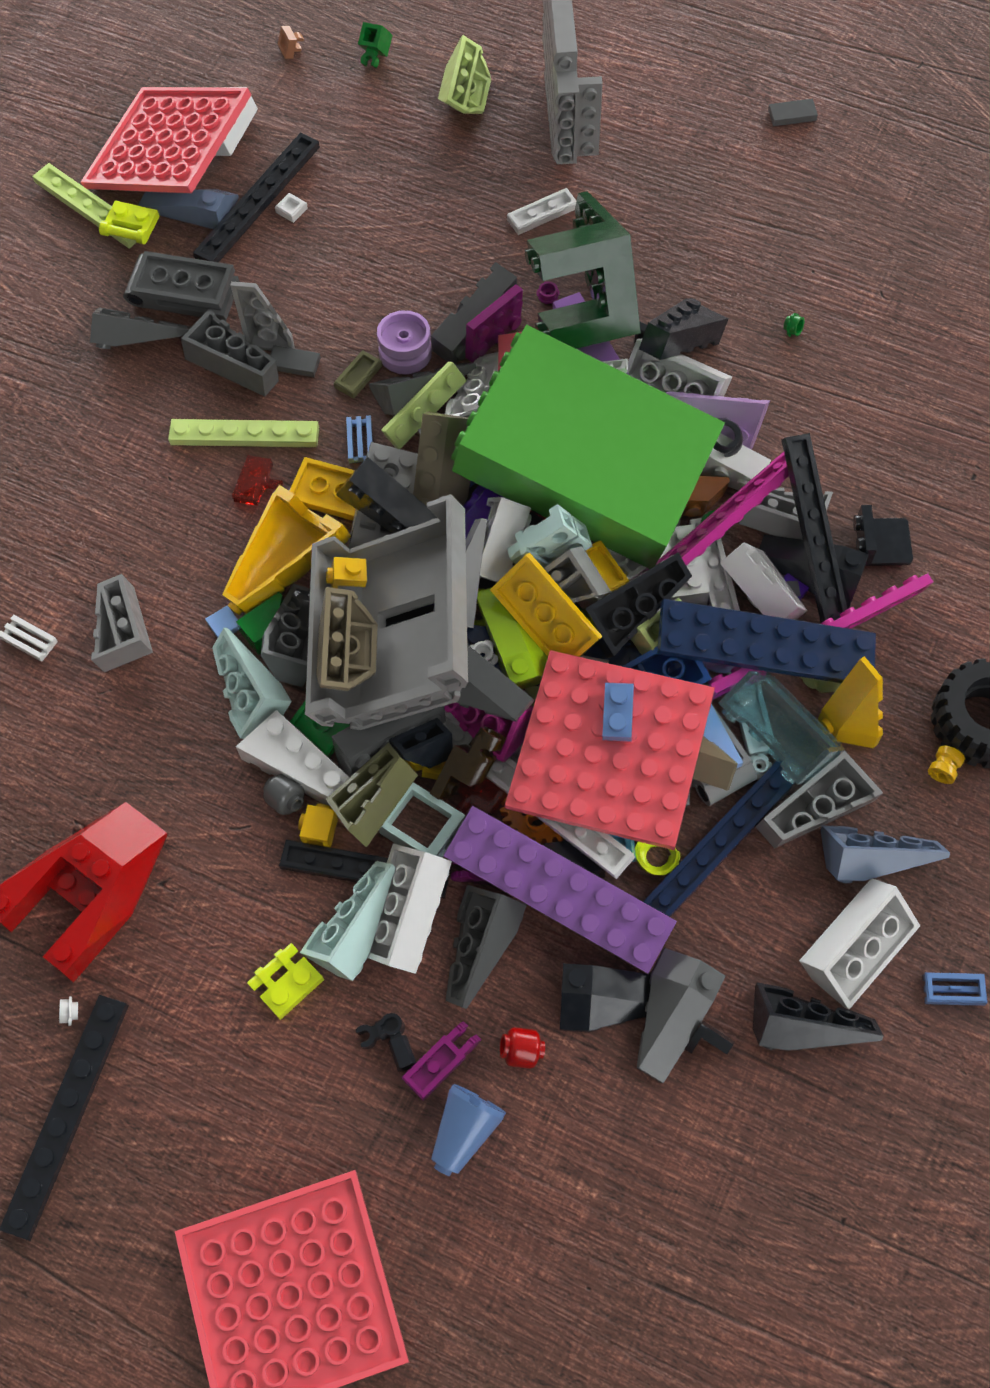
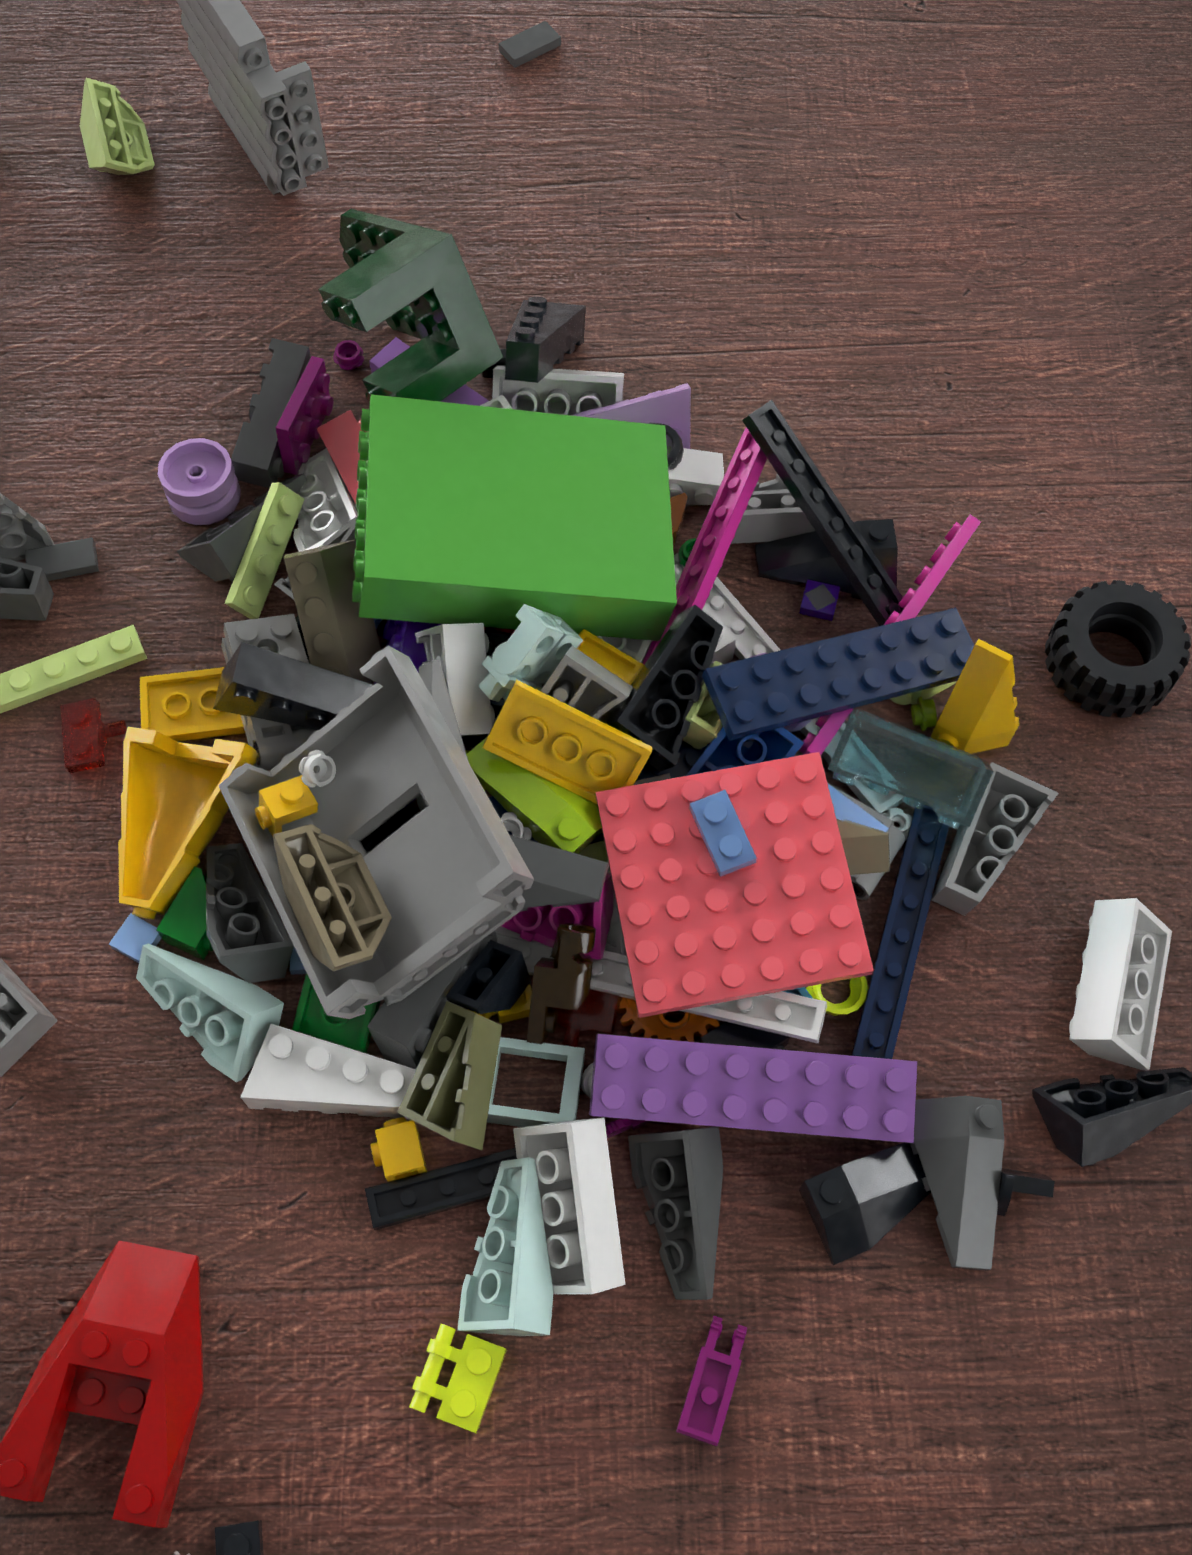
camera: 30 degrees left, 0 degrees up
(283, 794) = (333, 1130): dark grey head -> none
(358, 374) = (155, 545): olive tile -> none
(359, 423) = (189, 605): light blue tile -> none
(379, 565) = (325, 773): none -> white plate
(390, 1027) = (628, 1370): black bar -> none
(463, 1129) = (791, 1458): medium blue cone -> none
(522, 1047) = (804, 1313): red head -> none
(542, 211) = (289, 260): white tile -> none
(762, 583) = (791, 604): white wedge -> none
(794, 324) = (660, 286): green plate -> none
(820, 698) = (924, 713): none -> lime plate
(866, 857) = (1081, 872): sand blue wedge -> none
(882, 538) = (892, 494): black bracket -> none
(947, 762) = (1101, 728): yellow wheel -> none

